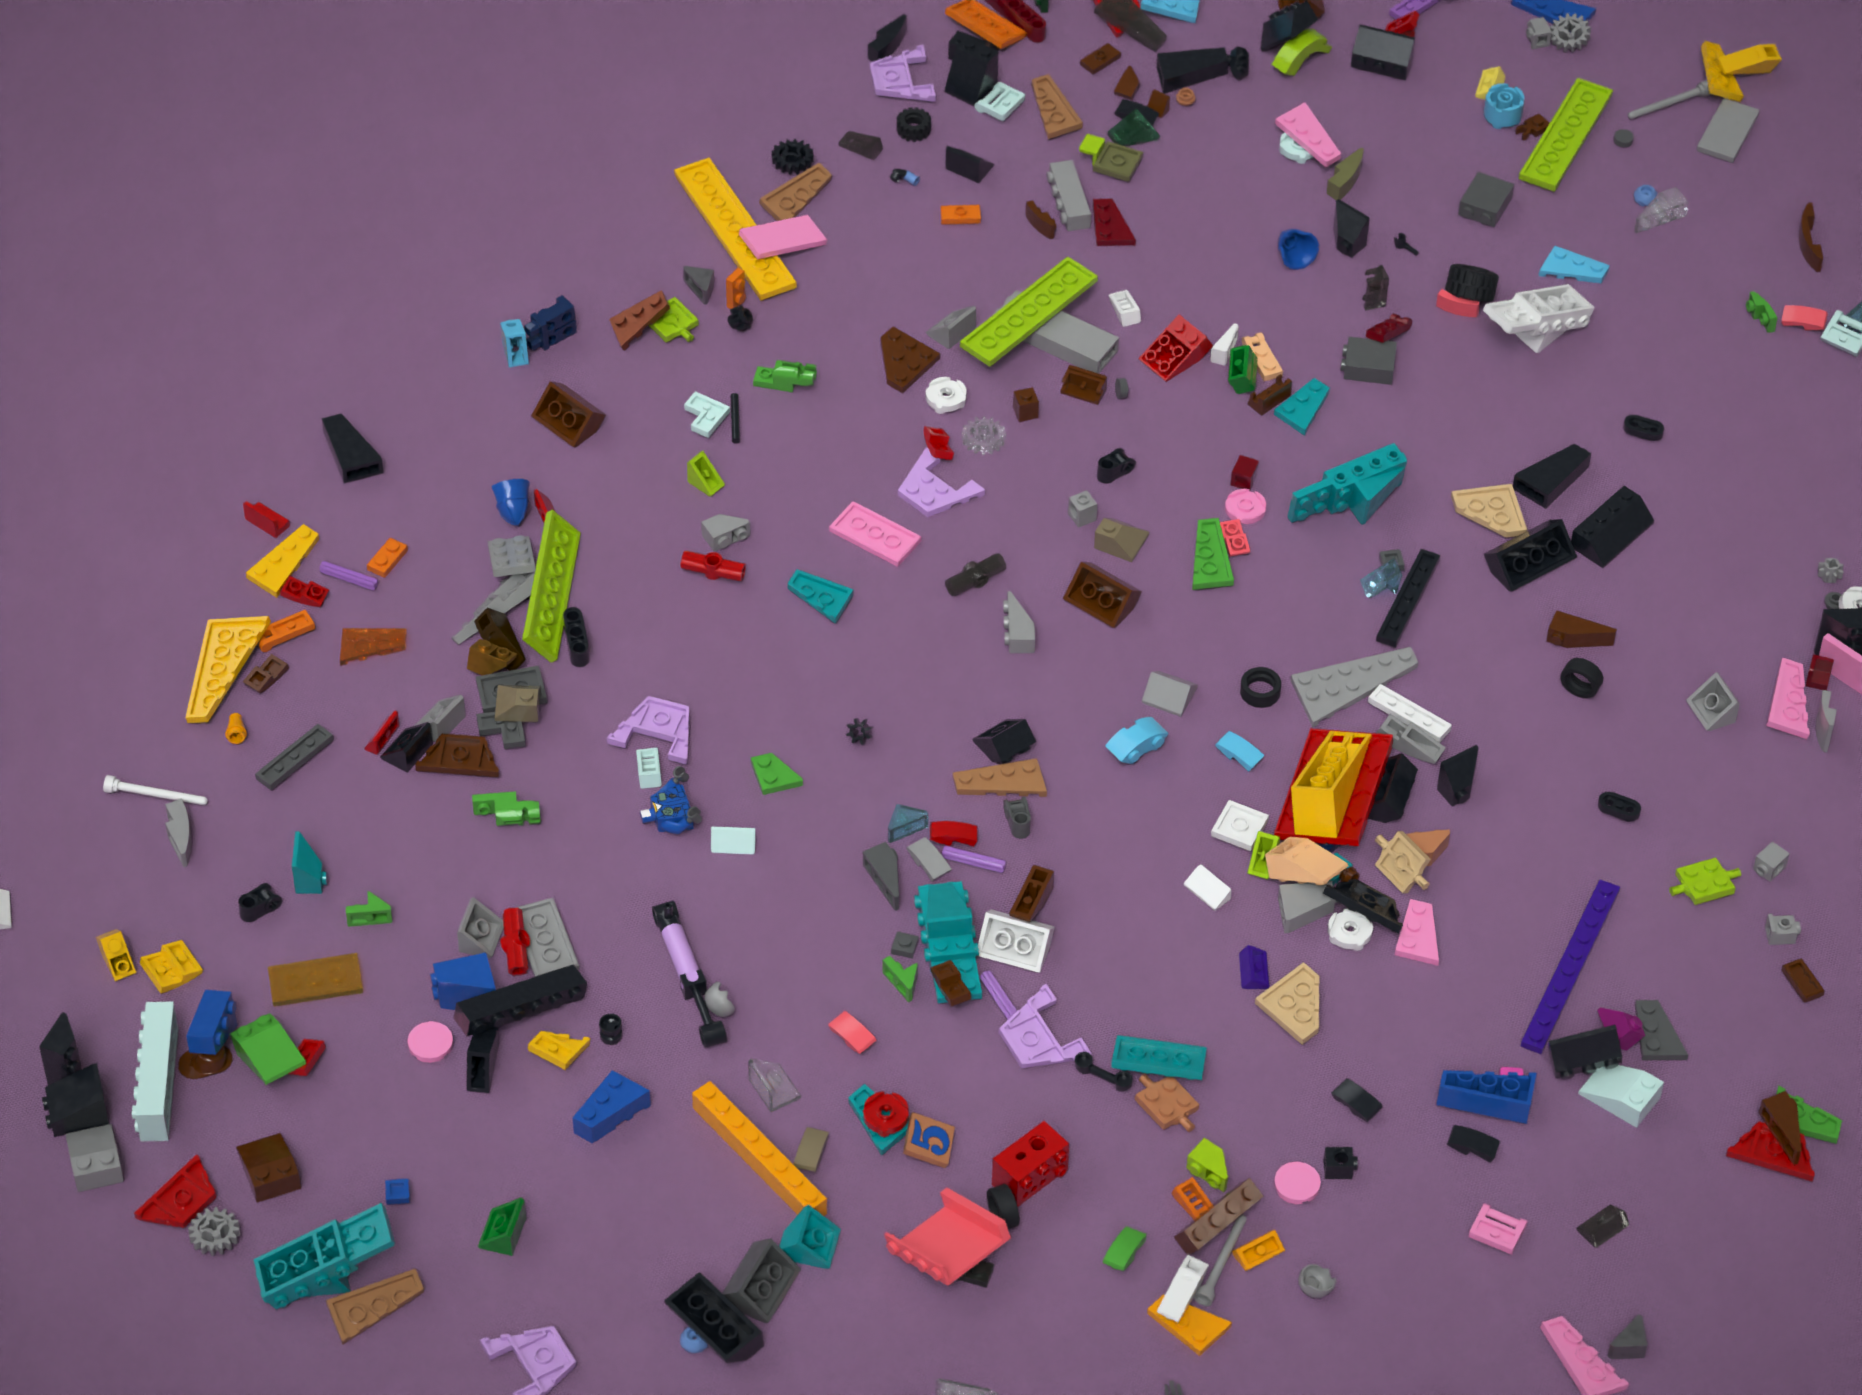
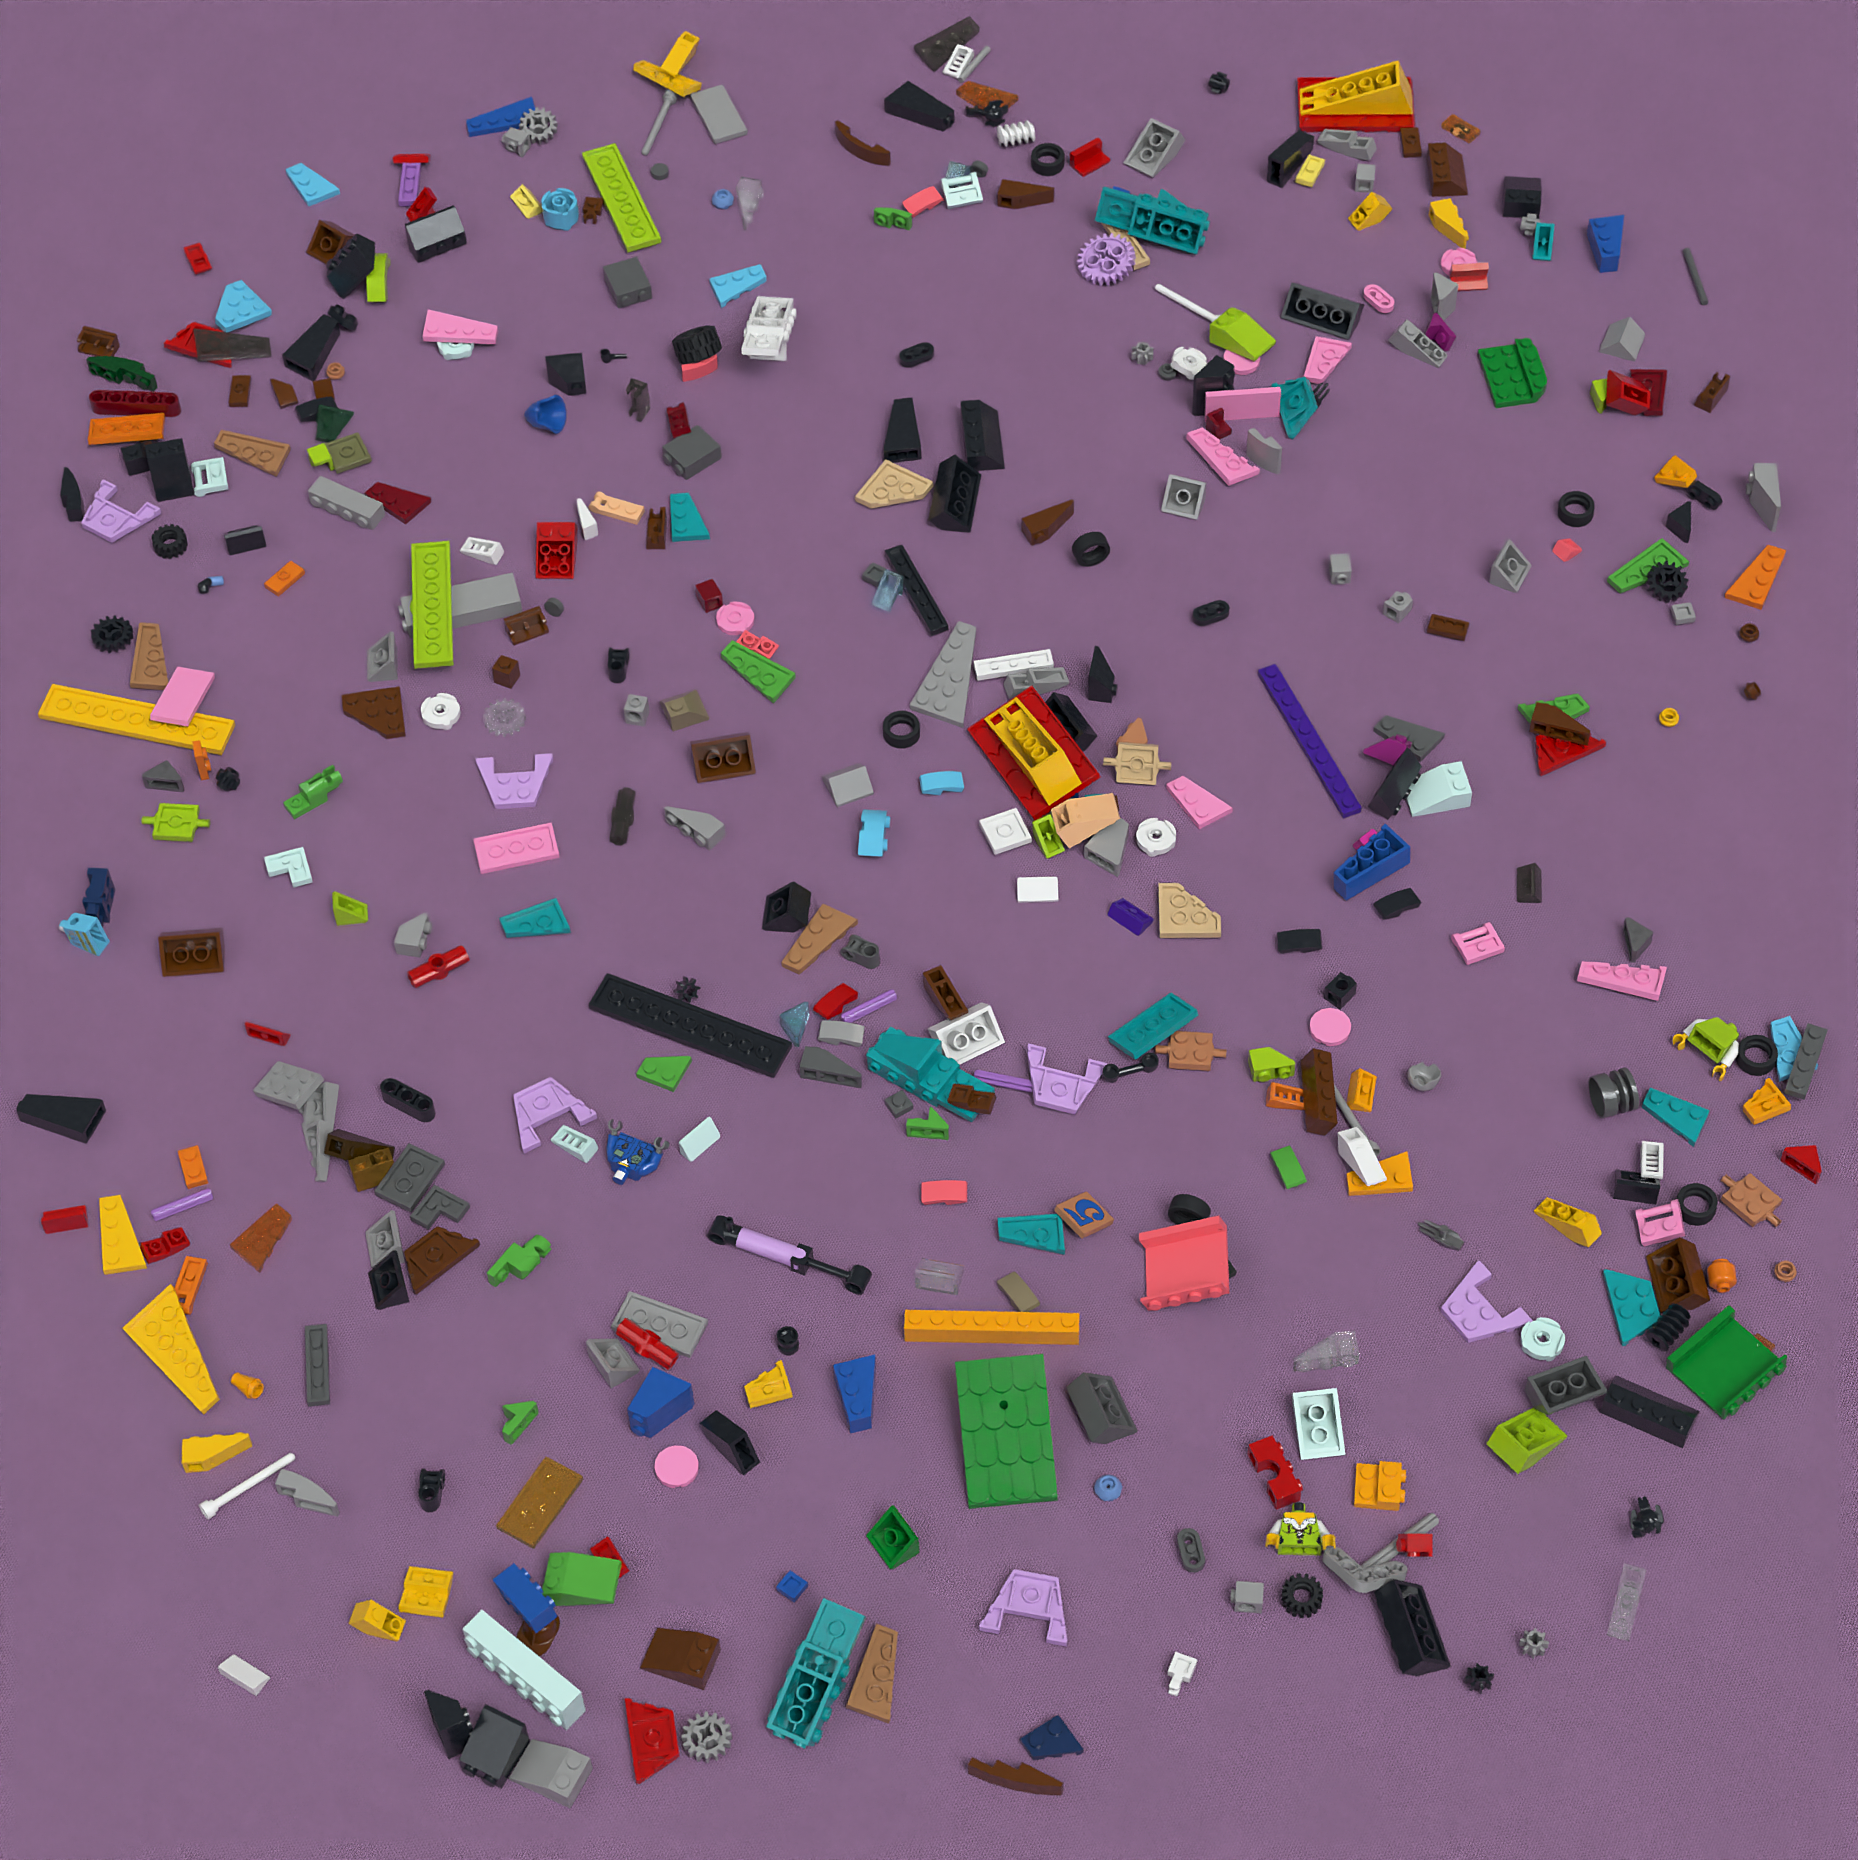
camera: 45 degrees left, 5 degrees up
(155, 748) = (205, 1453): none -> yellow slope
(265, 676) = (216, 1327): reddish brown slope -> none
(306, 868) = (435, 1431): teal slope -> none
(383, 734) = (357, 1291): red slope -> none
(512, 499) = (239, 1046): blue helmet -> none
(517, 703) = (432, 1180): dark tan slope -> none
(520, 1000) = (710, 1378): black brick -> none
(551, 586) = (346, 1080): lime plate -> none
(636, 318) = (153, 844): copper wing -> none
(666, 1226) = (1006, 1431): none -> green piece
(715, 1319) = (1112, 1459): black slope -> none
(717, 1001) = (835, 1254): light grey hair -> none
(735, 426) = (313, 852): black bar -> none
(810, 1239) = (1097, 1350): teal slope -> none
(831, 759) = (690, 1025): none -> black plate
(868, 145) = (155, 589): clear smoke slope -> none
(885, 1124) = (1035, 1233): red plate -> none
(937, 443) = (476, 748): red slope -> none
(1031, 1162) = (1170, 1165): red piece -> none
(1040, 221) = (351, 538): reddish brown slope -> none
(1242, 369) = (620, 526): green brick -> none
(1345, 175) = (515, 339): olive slope -> none
(1355, 484) = (799, 543): teal wedge -> none
(1366, 901) = (1150, 808): black wing -> none
(1705, 881) = (1317, 616): lime plate -> none

